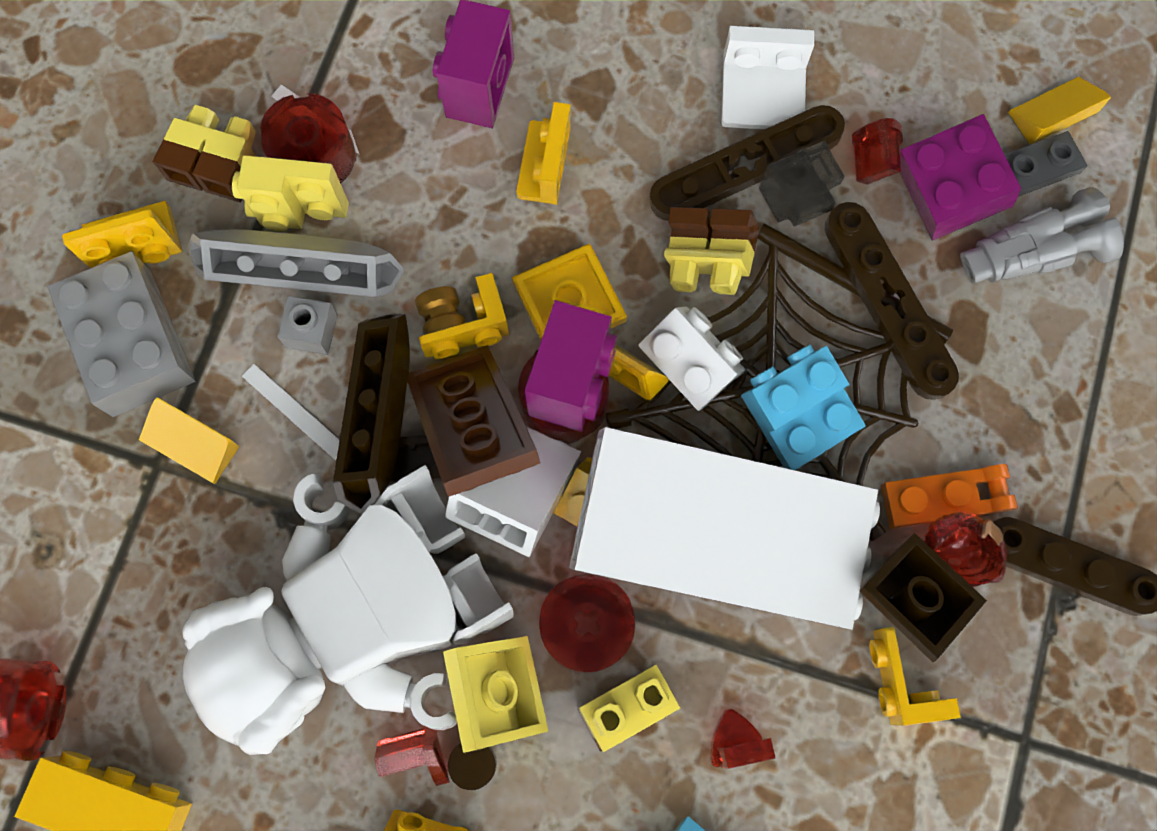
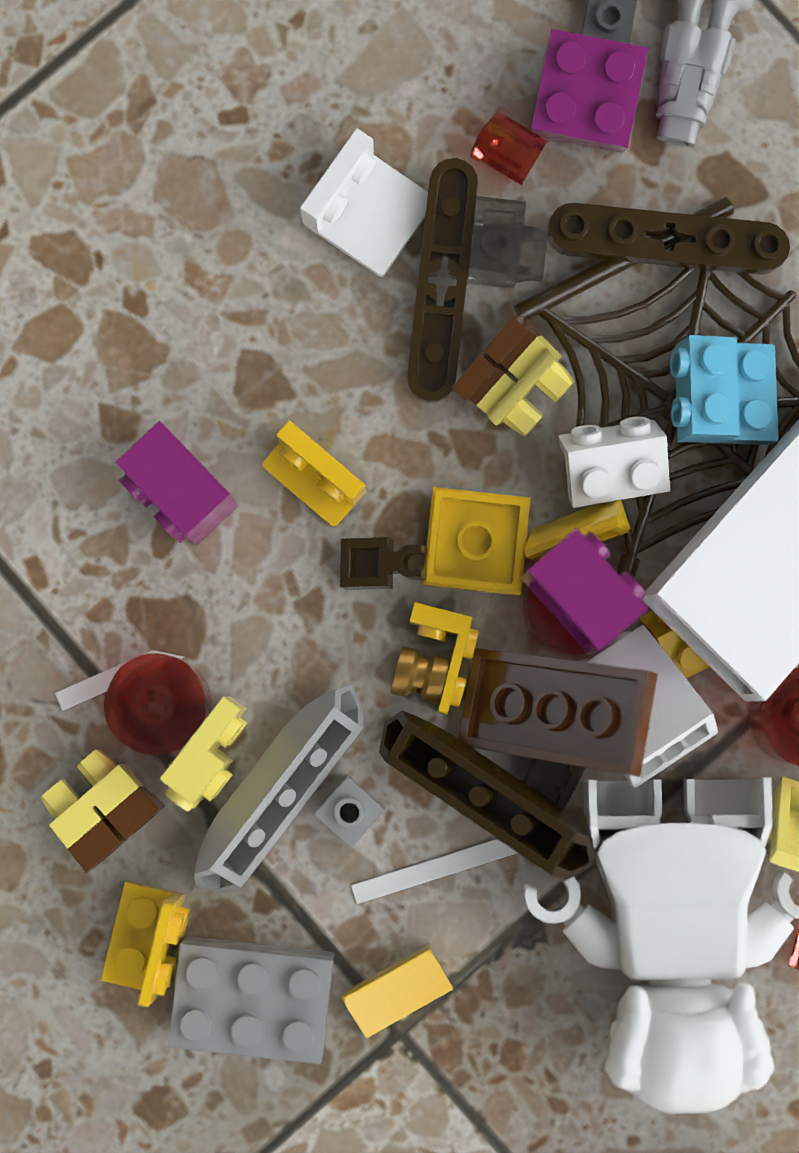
camera: 60 degrees left, 10 degrees up
(507, 234) = (371, 563): none -> dark brown plate

